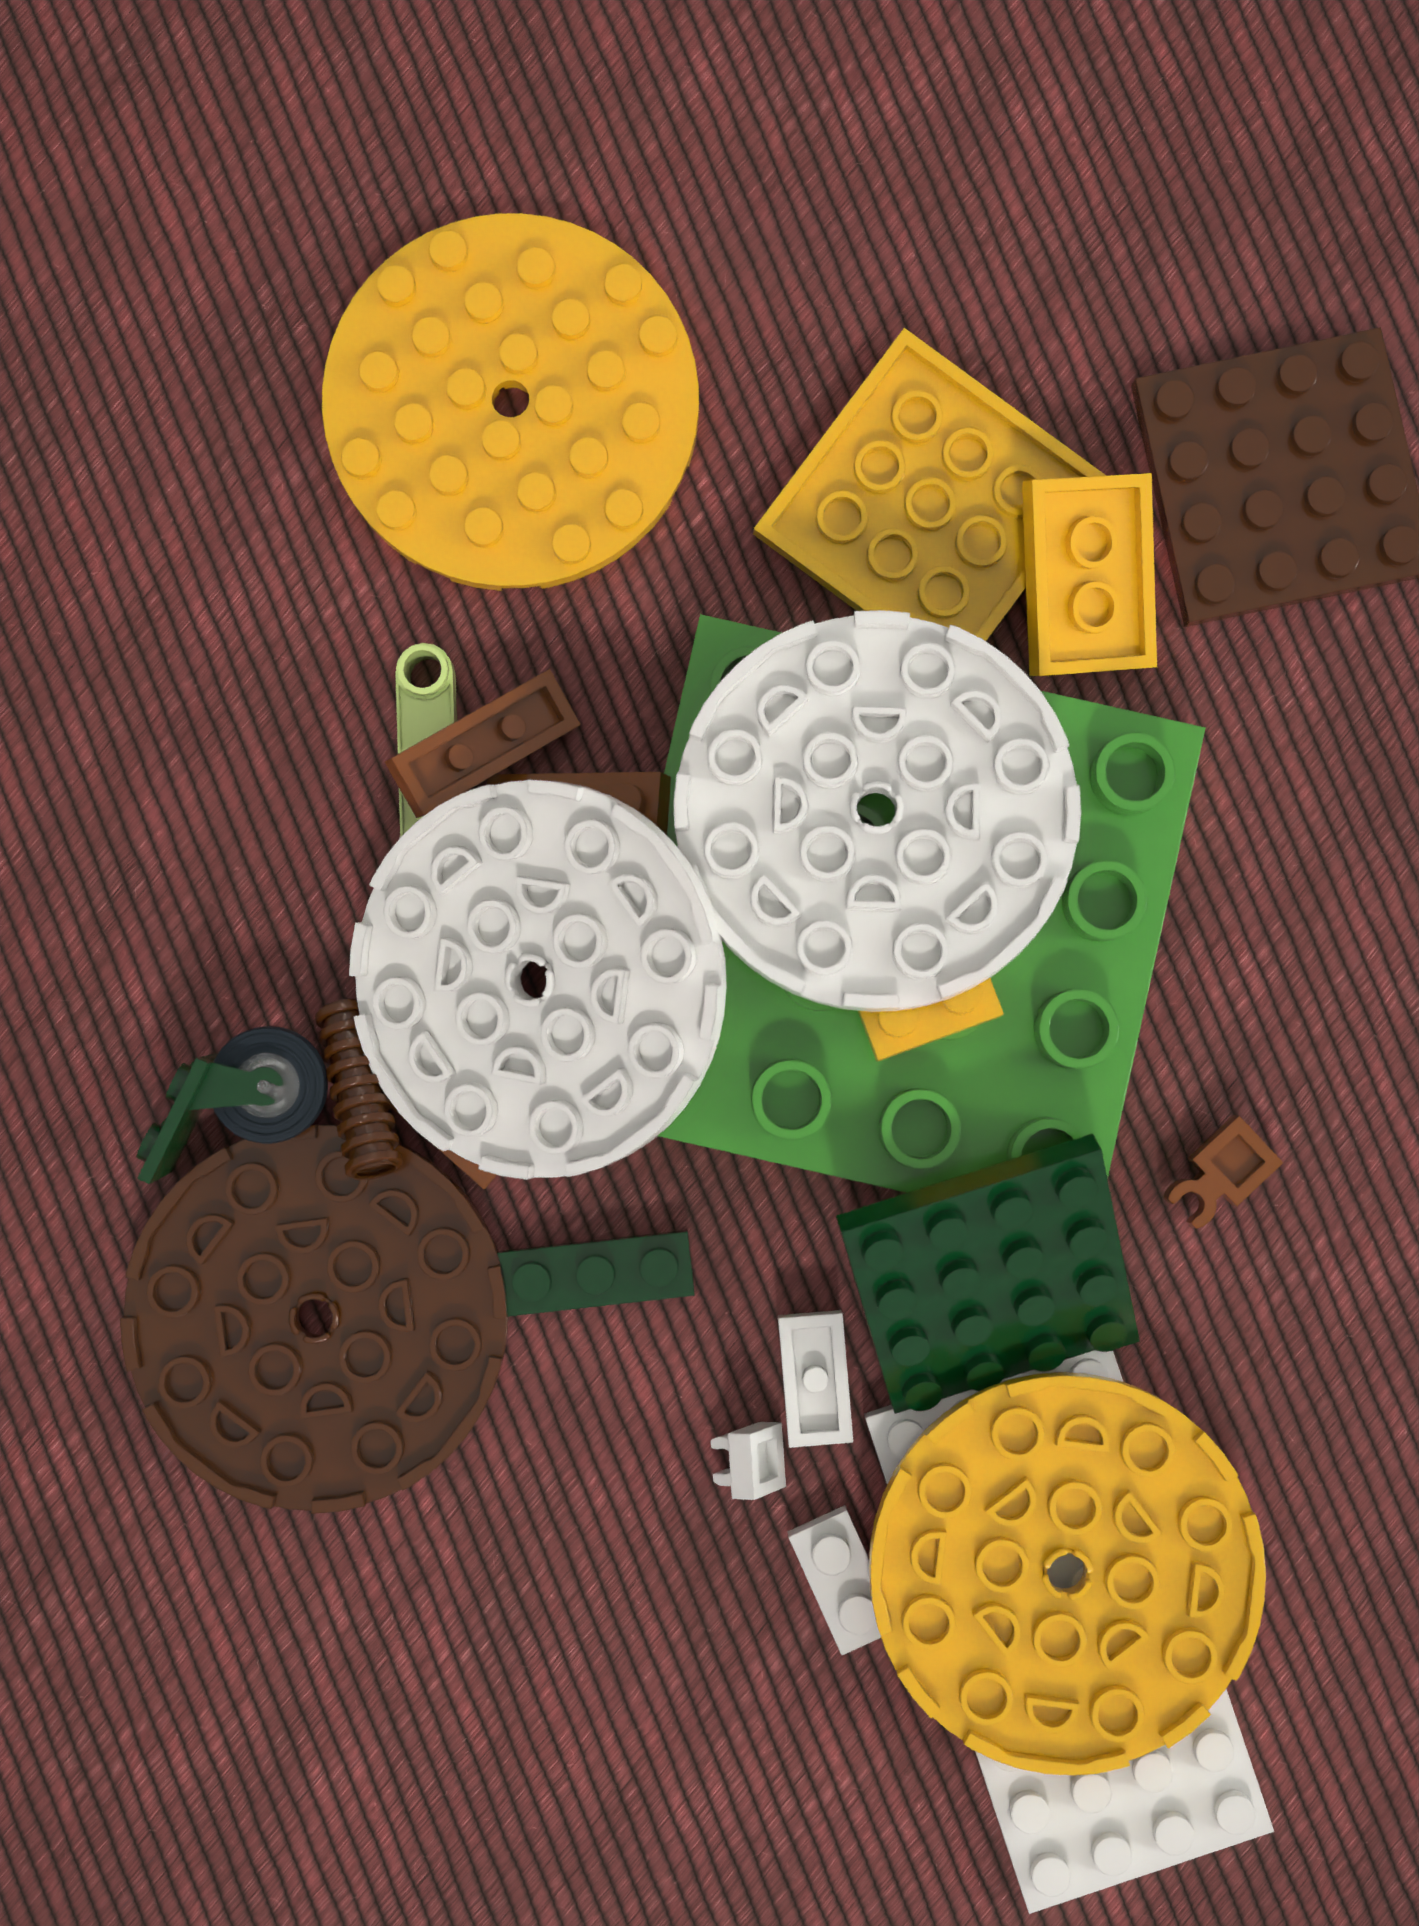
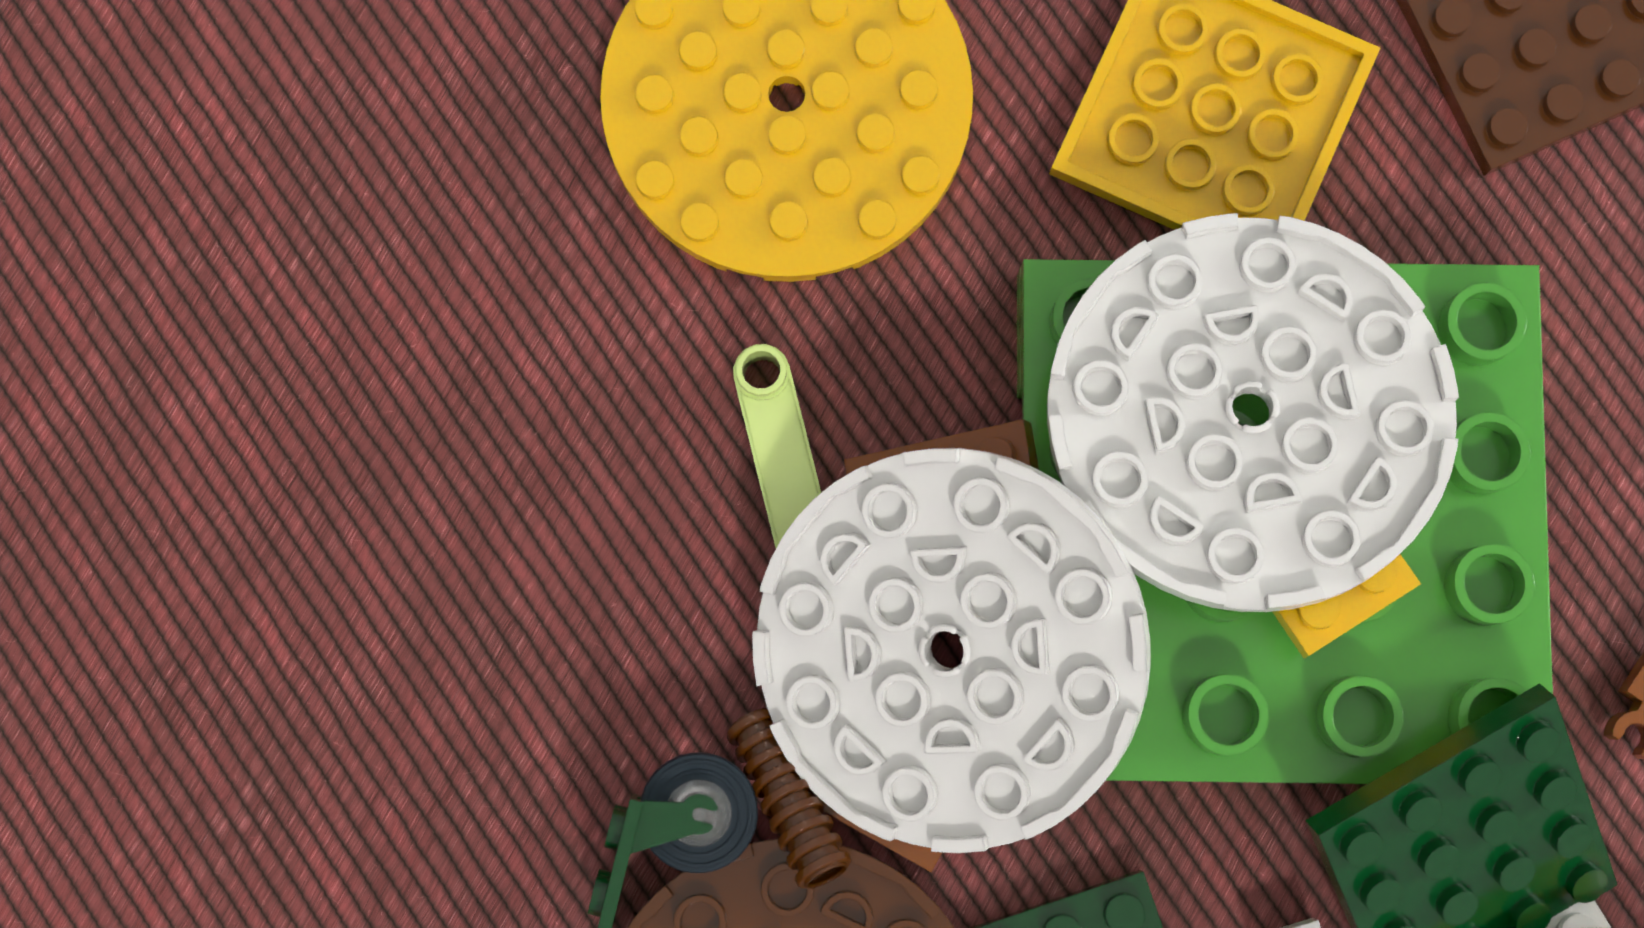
camera: 10 degrees left, 5 degrees down
(482, 743) = (835, 430): dark orange plate -> none
(1089, 574) = (1387, 142): yellow plate -> none

